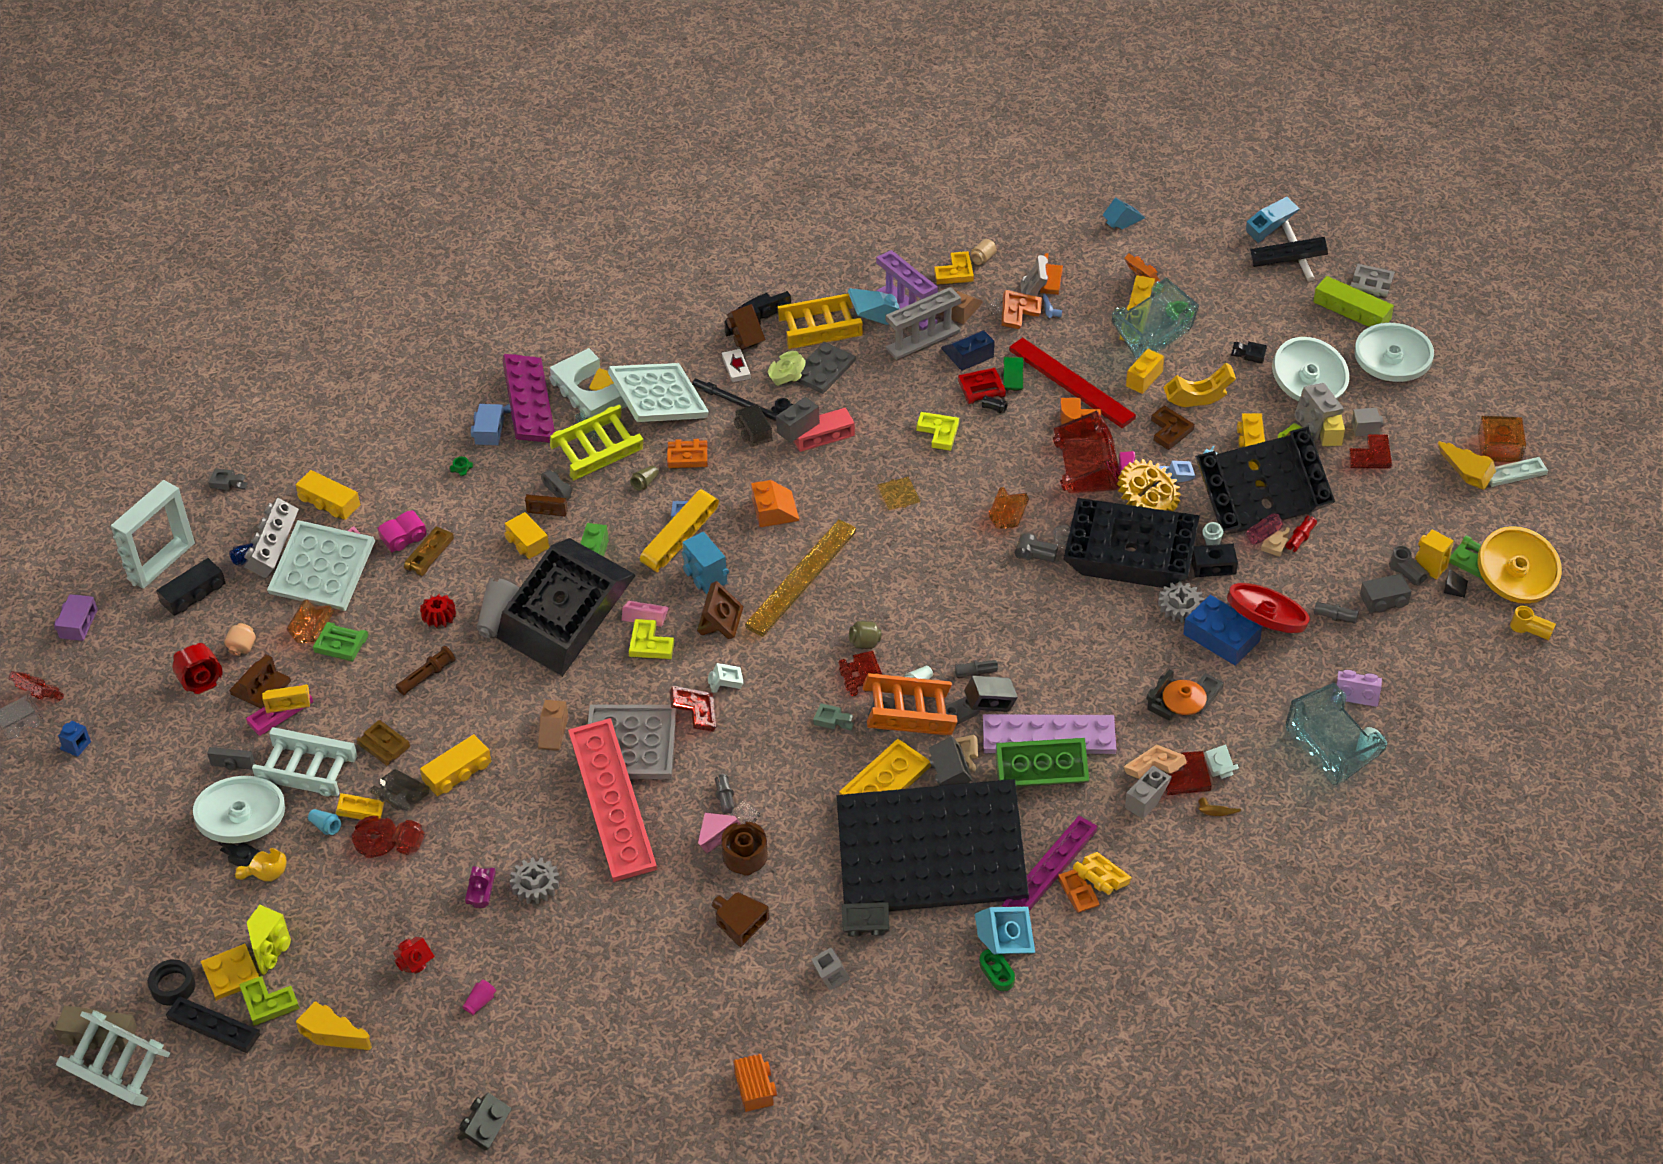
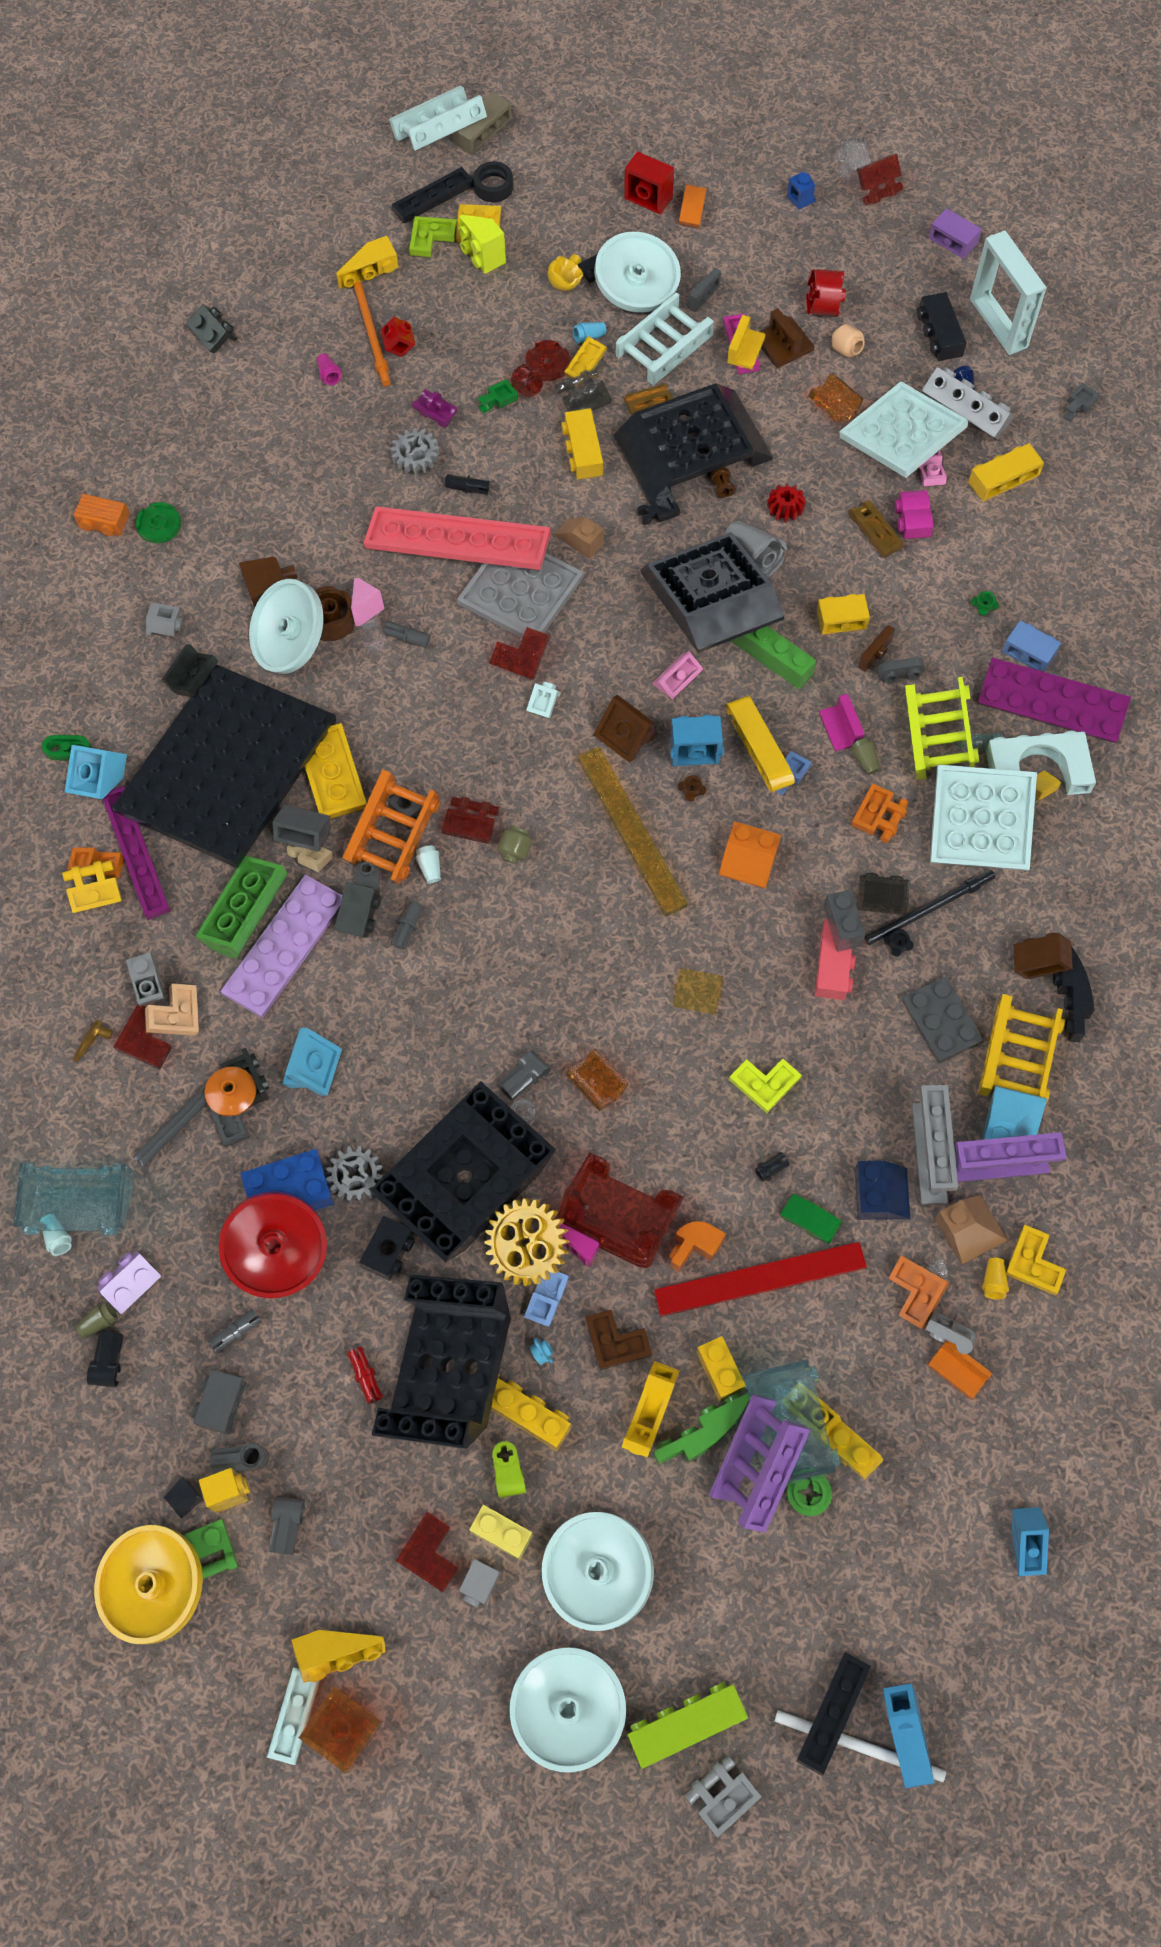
camera: 120 degrees right, 20 degrees up
(121, 813) = (692, 206): none -> orange slope
(123, 844) = (648, 182): none -> red brick
(337, 645) = (794, 411): bright green plate -> none
(431, 707) = (666, 455): none -> black slope
(435, 850) = (498, 394): none -> green plate
(449, 959) = (380, 363): none -> orange bar
(492, 686) = (662, 508): none -> black plate
(546, 827) = (467, 484): none -> black axle
(624, 500) = (842, 723): none -> dark pink panel
(646, 644) = (632, 653): neon yellow plate -> none
(730, 1039) = (163, 527): none -> green tile
(736, 365) = (997, 930): white tile -> none
(739, 556) = (691, 781): none -> reddish brown plate
(782, 860) = (286, 626): none -> light aqua dish
(787, 368) = (957, 983): yellowish green plate -> none
(830, 716) = (434, 762): sand green plate -> none
(979, 381) = (819, 1171): red plate -> none
(981, 281) = (995, 1280): none -> yellow cone
(983, 252) = (1049, 1313): tan brick -> none
(1049, 308) = (897, 1330): medium blue bar -> none
(1127, 667) = (312, 1063): none -> medium azure bracket
(1138, 266) = (895, 1483): orange plate -> none
(1182, 360) = (714, 1426): none -> bright green slope
(1186, 296) = (775, 1471): none -> medium lavender fence
(1212, 533) = (413, 1258): light aqua cone -> none
(1220, 762) = (132, 1075): light aqua bracket -> none
(1234, 723) = (171, 1128): none -> dark grey axle
(1252, 352) = (681, 1532): black plate -> none
(1264, 528) = (391, 1334): clear pink beam -> none
(1276, 543) = (373, 1340): tan plate -> none
(1316, 405) = (521, 1525): light grey bracket -> none
(1397, 687) = (98, 1319): none -> olive cone
(1416, 527) = (286, 1520): none -> dark grey piece
(1420, 665) = (106, 1365): none -> black piece
(1525, 621) = (68, 1537): yellow piece -> none

